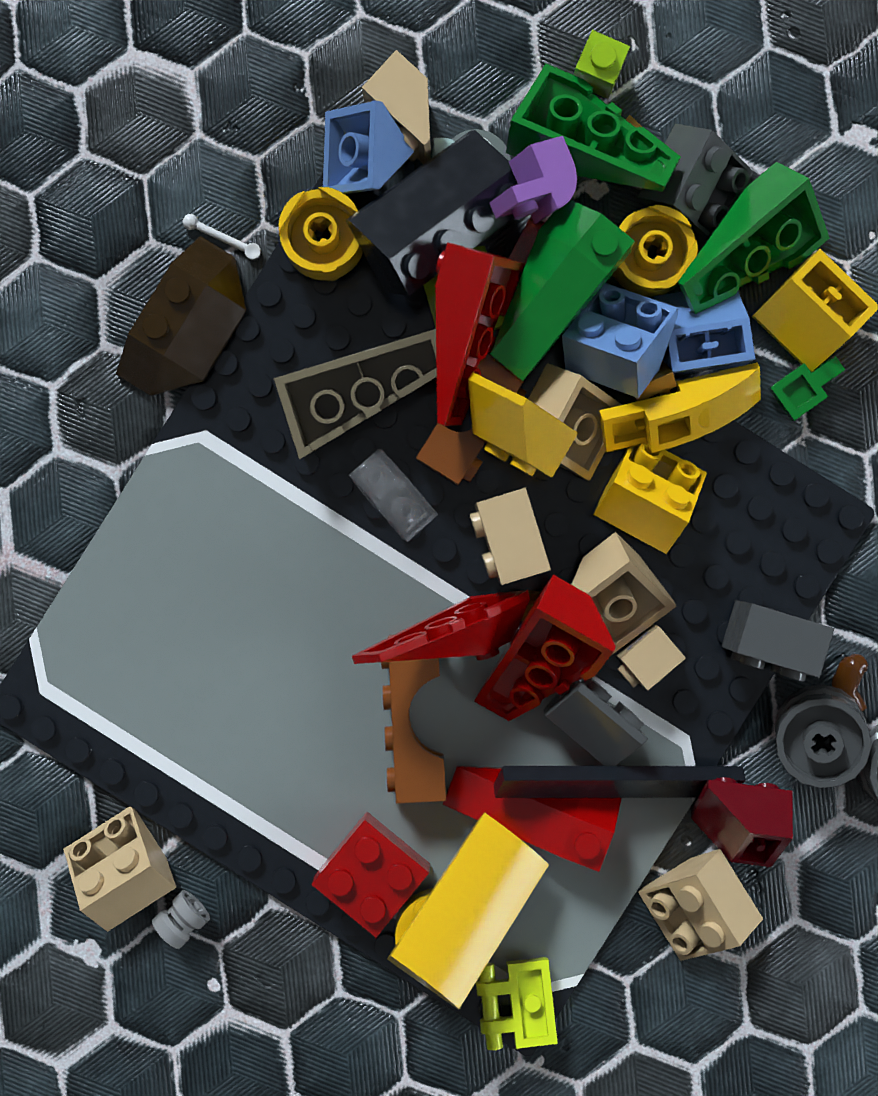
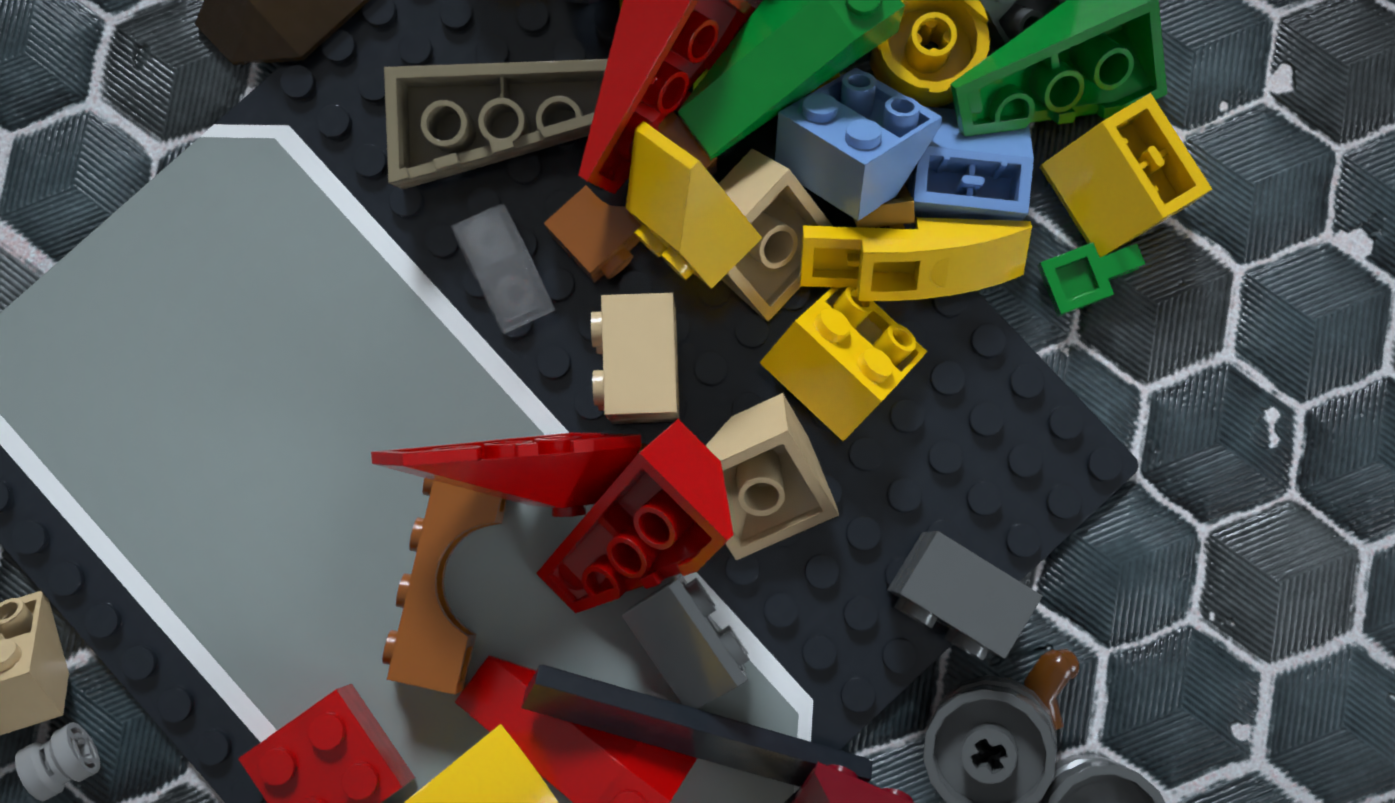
camera: 20 degrees right, 5 degrees down
(649, 658) = (784, 576): tan brick -> none

